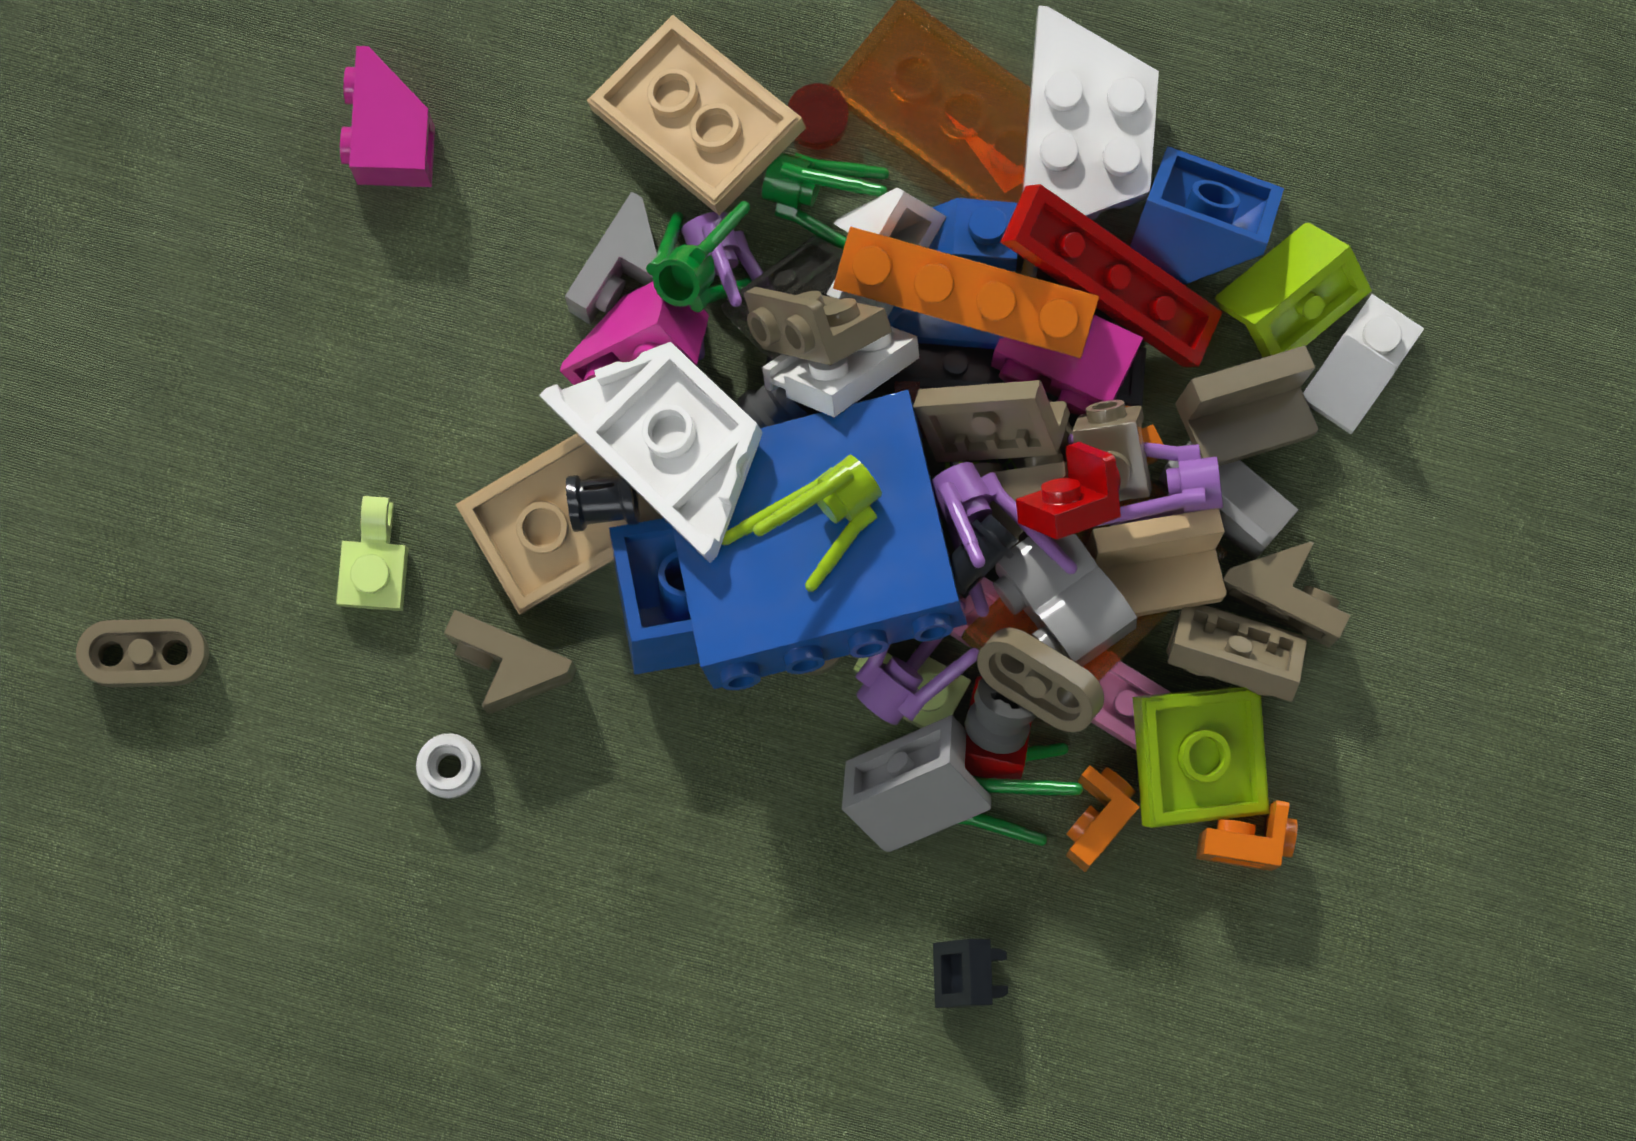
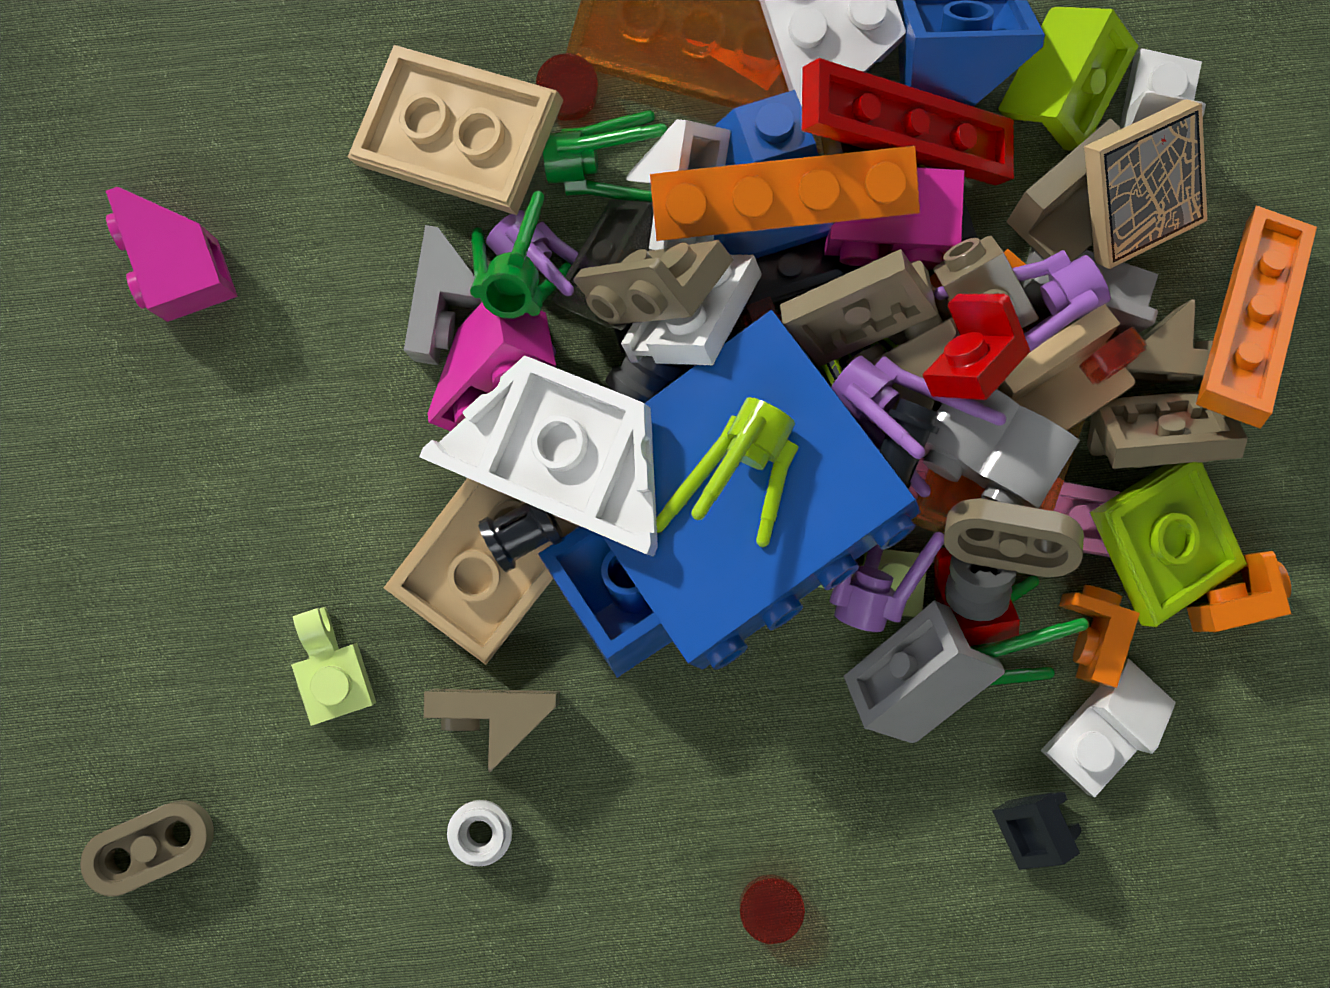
camera: 25 degrees left, 5 degrees up
(688, 948) = (771, 909): none -> clear red tile
(1076, 912) = (1111, 730): none -> white slope
(1209, 560) = (1113, 356): none -> clear red tile
(1314, 419) = (1146, 183): none -> tile
(1363, 578) = (1257, 318): none -> orange plate

